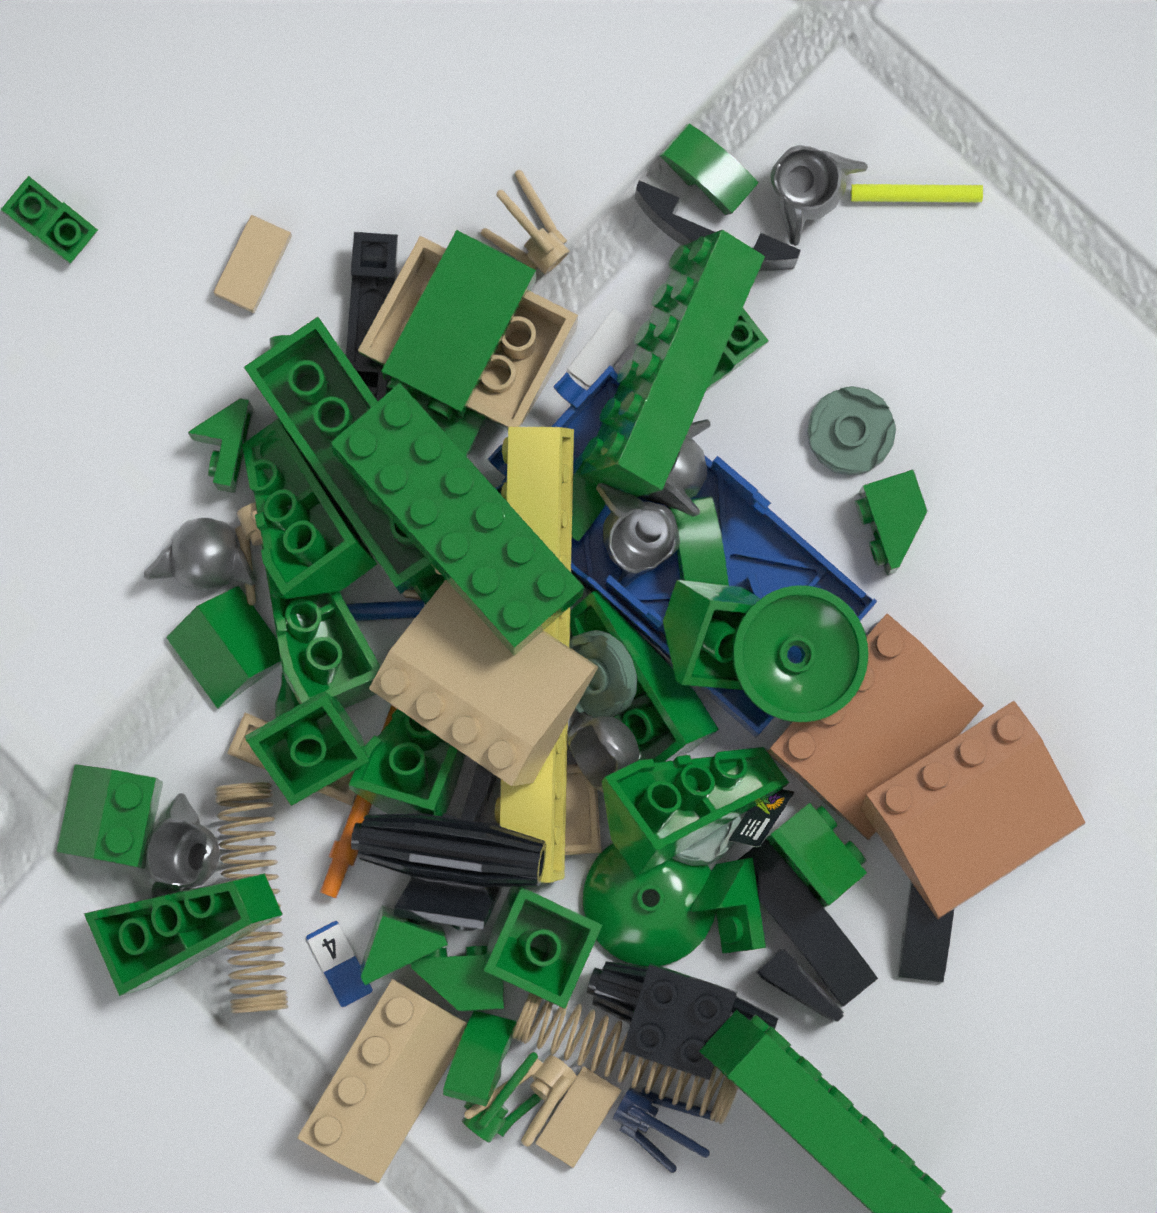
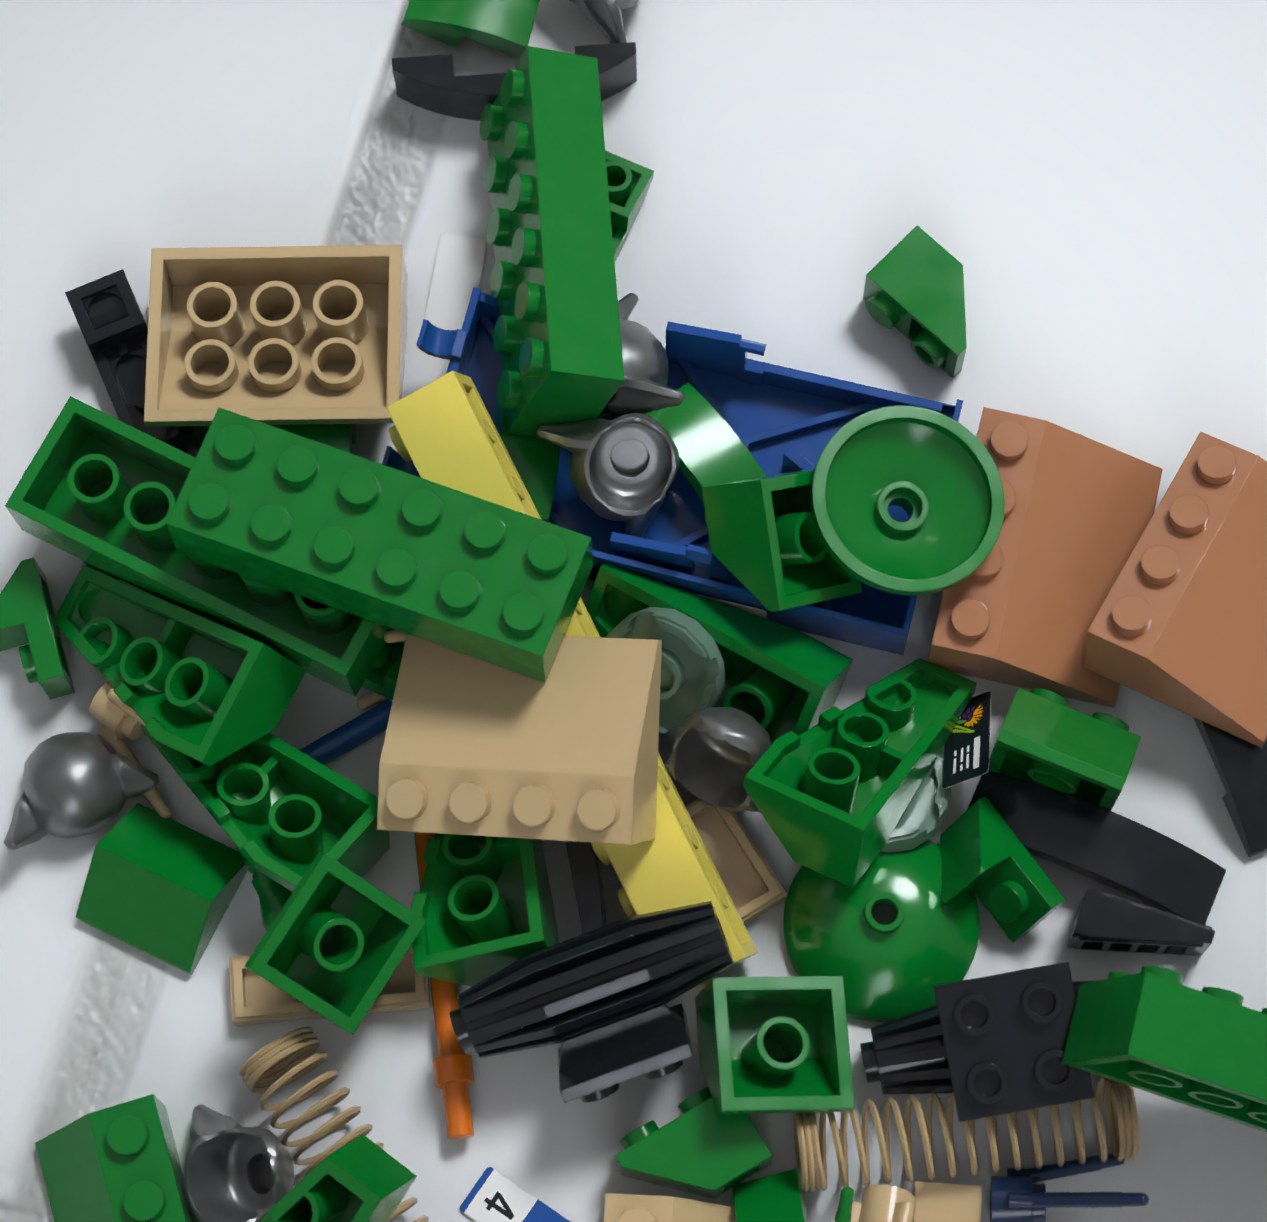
camera: 25 degrees left, 10 degrees down
(398, 943) = (584, 1141): green slope -> none
(458, 325) = (256, 318): green panel -> none
(544, 248) = (315, 198): tan plant -> none
(851, 430) = (813, 229): sand green tile -> none

